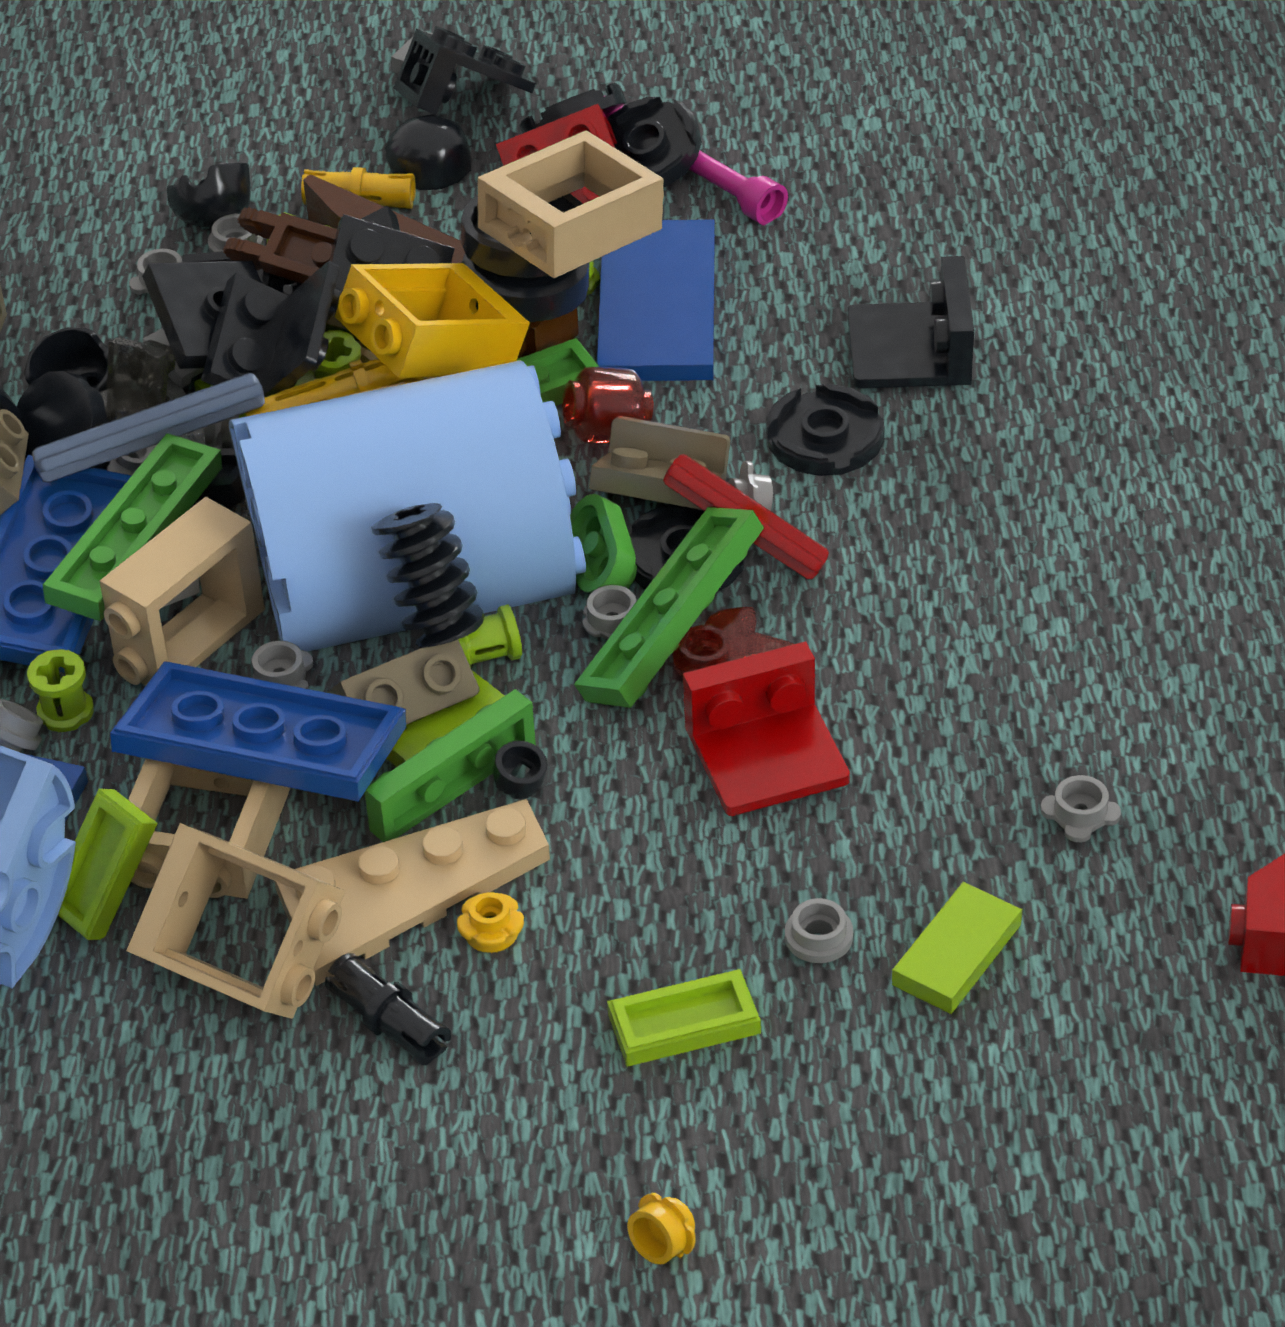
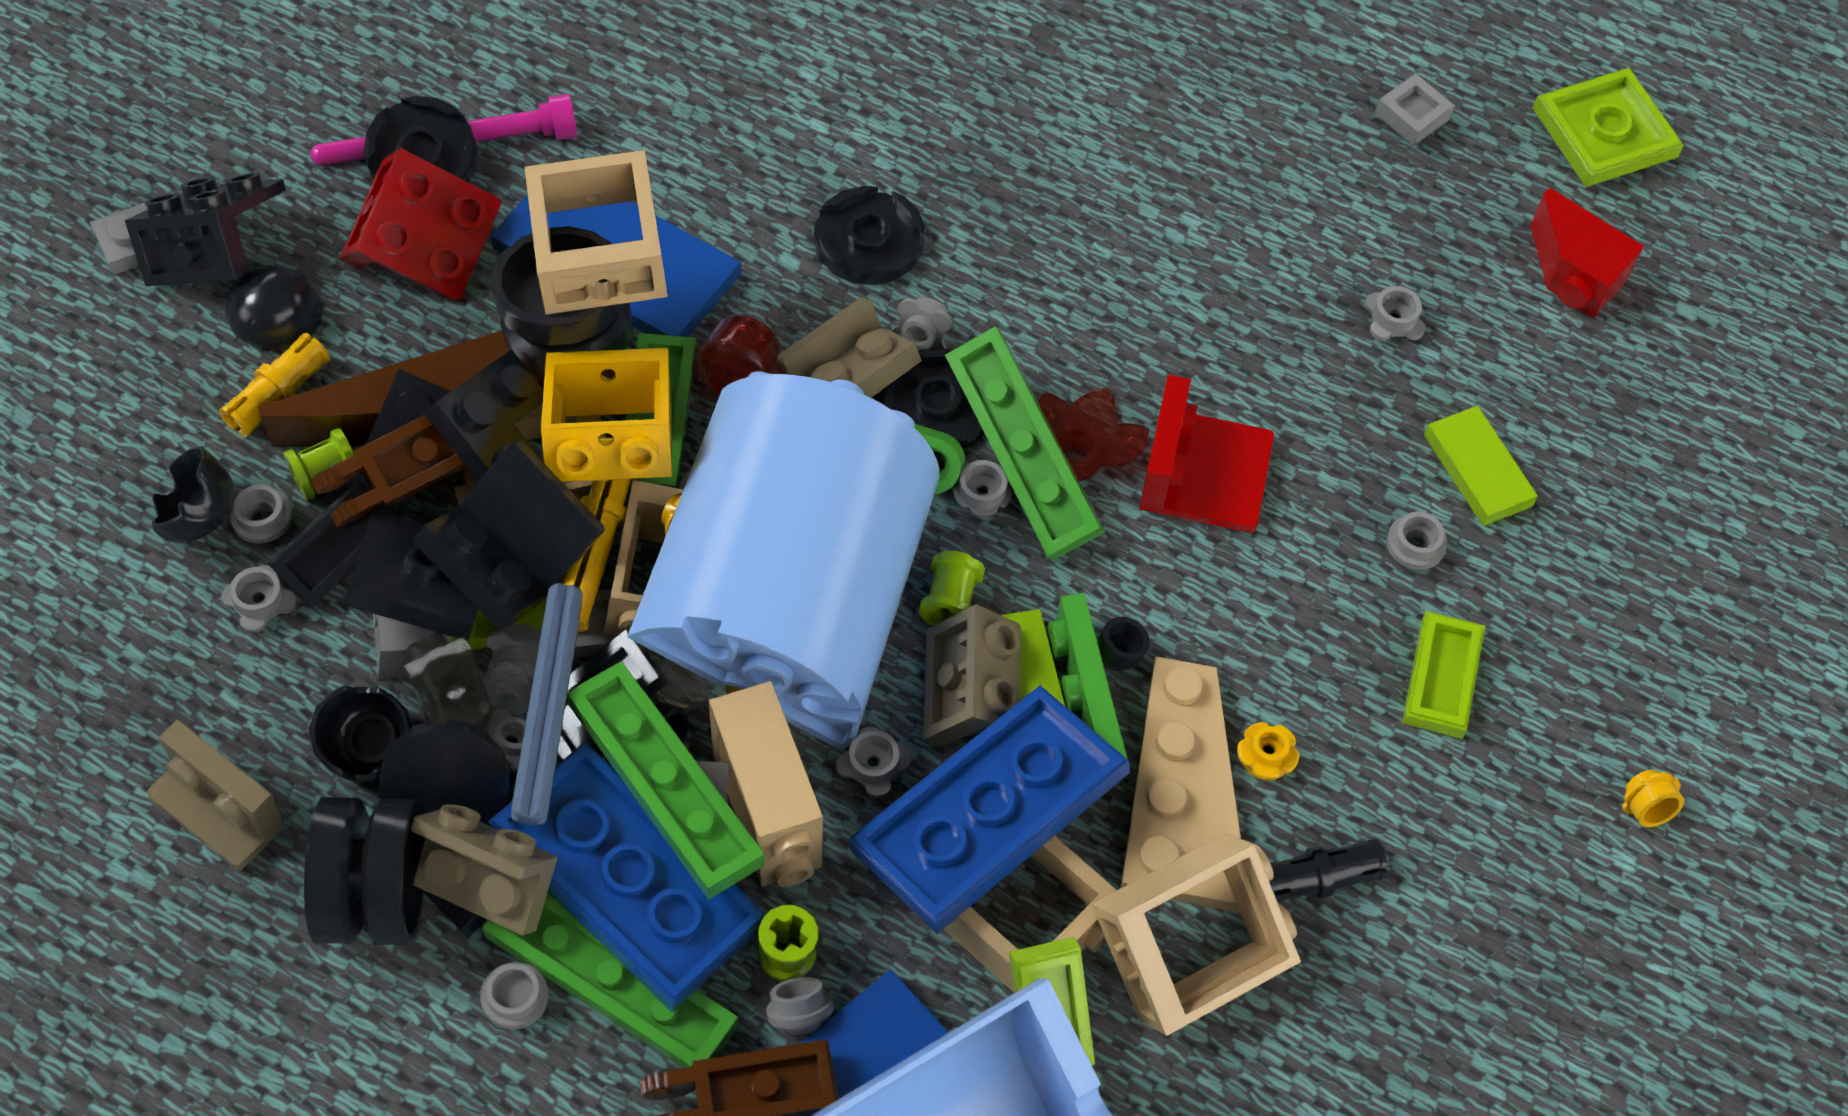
camera: 65 degrees left, 15 degrees up
(432, 574) = (932, 582): black piece -> none
(576, 103) = (347, 178): black tile -> none
(778, 536) = (935, 342): red axle -> none
(916, 340) = (824, 111): black bracket -> none

